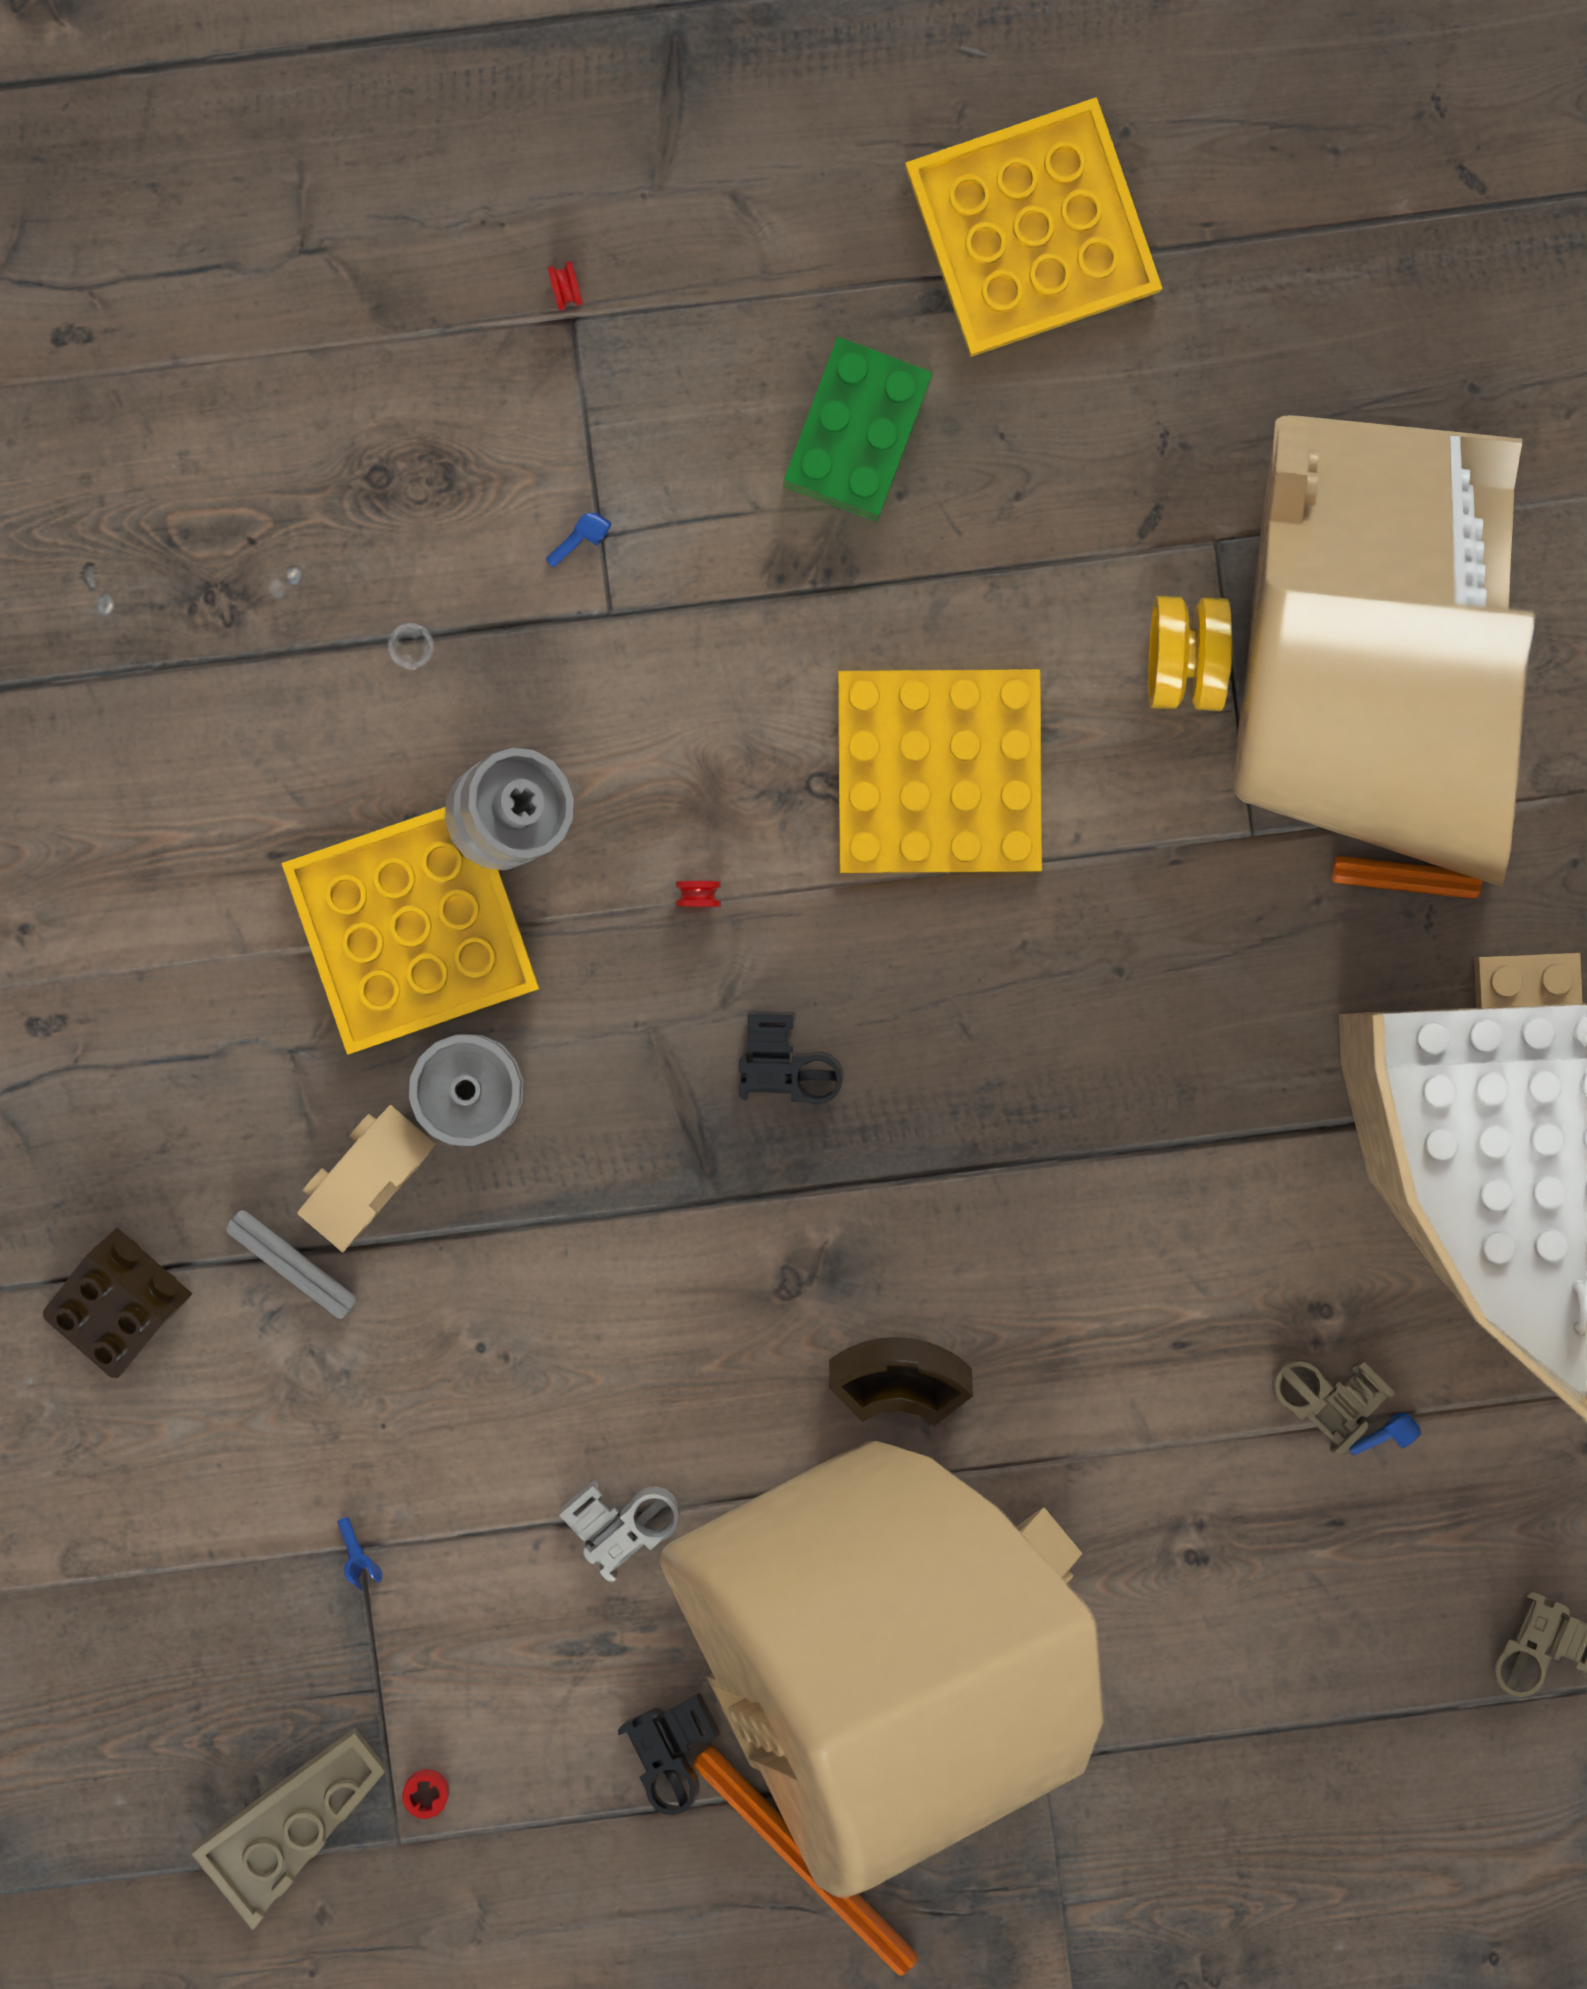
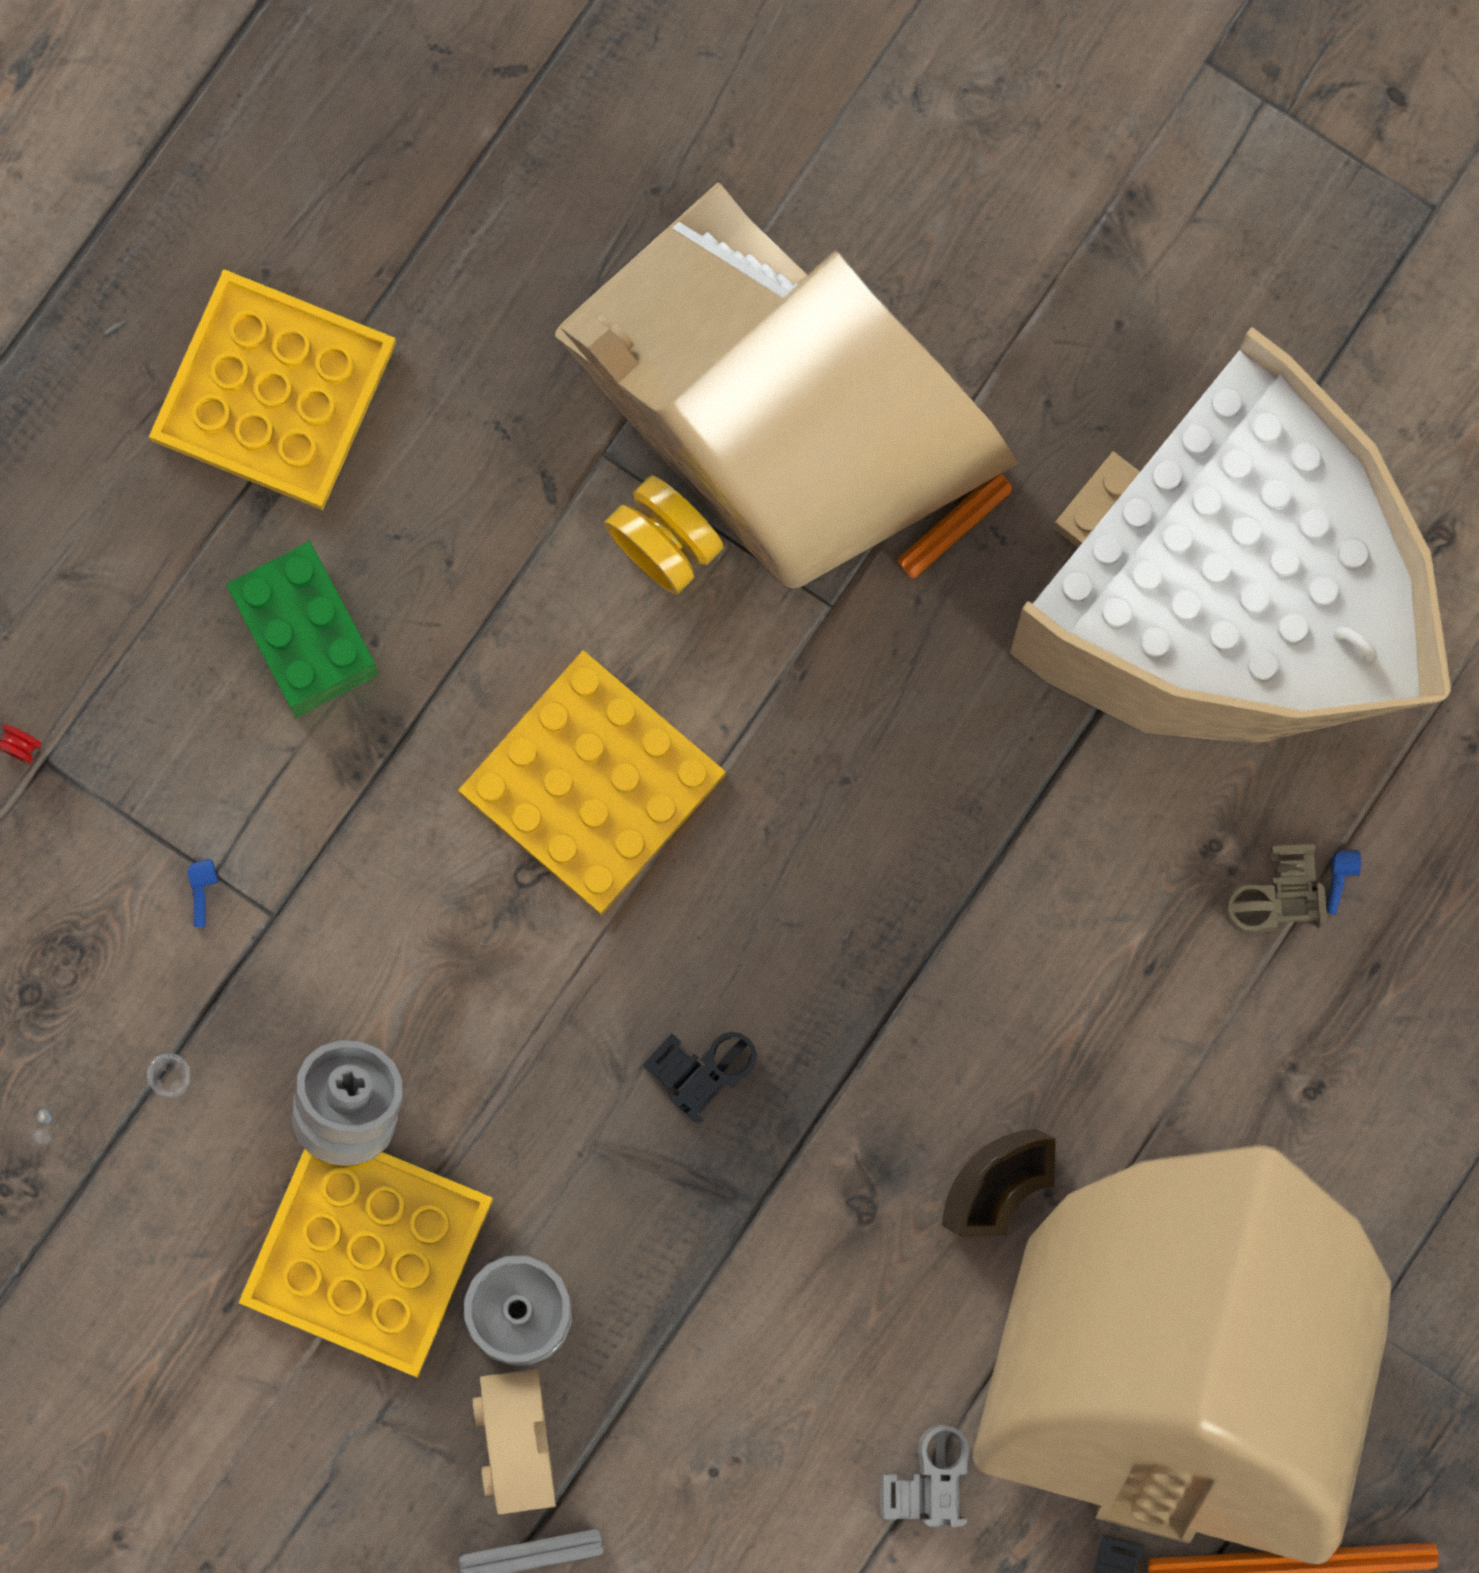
camera: 50 degrees left, 10 degrees down
(698, 894) = (526, 1025): red bush -> none

